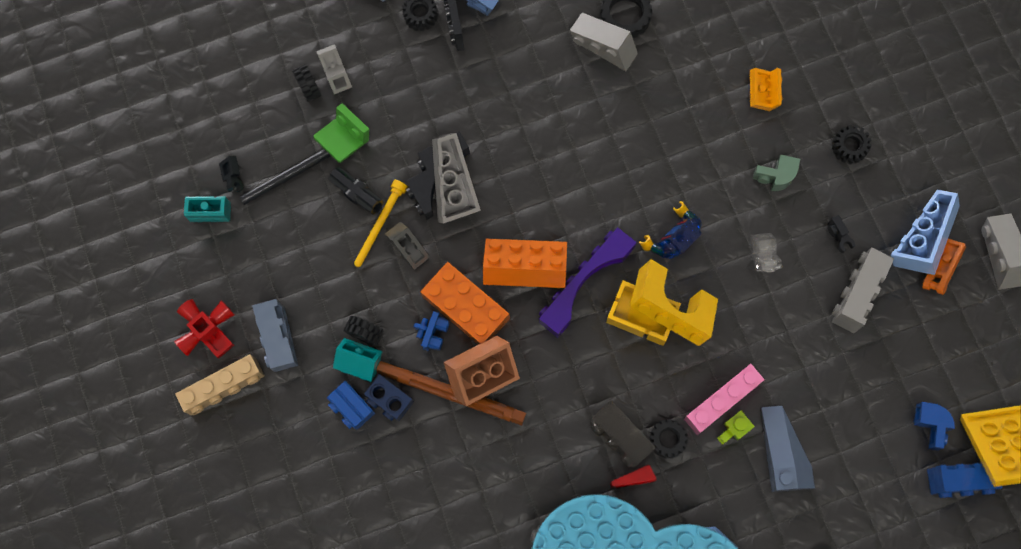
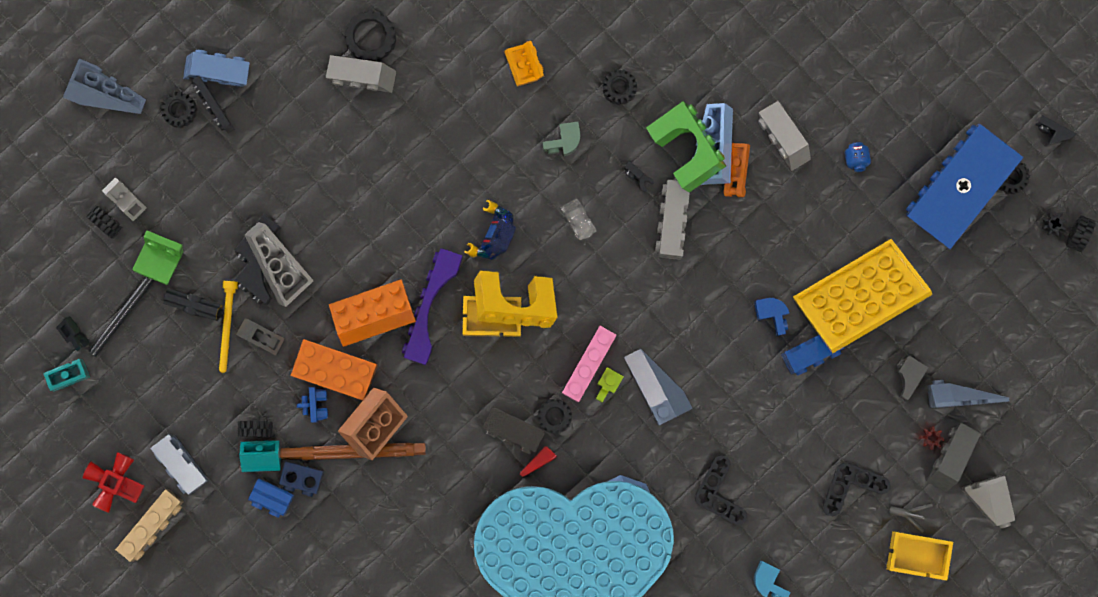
camera: 30 degrees left, 10 degrees up
(920, 241) = (707, 158): none -> bright green arch

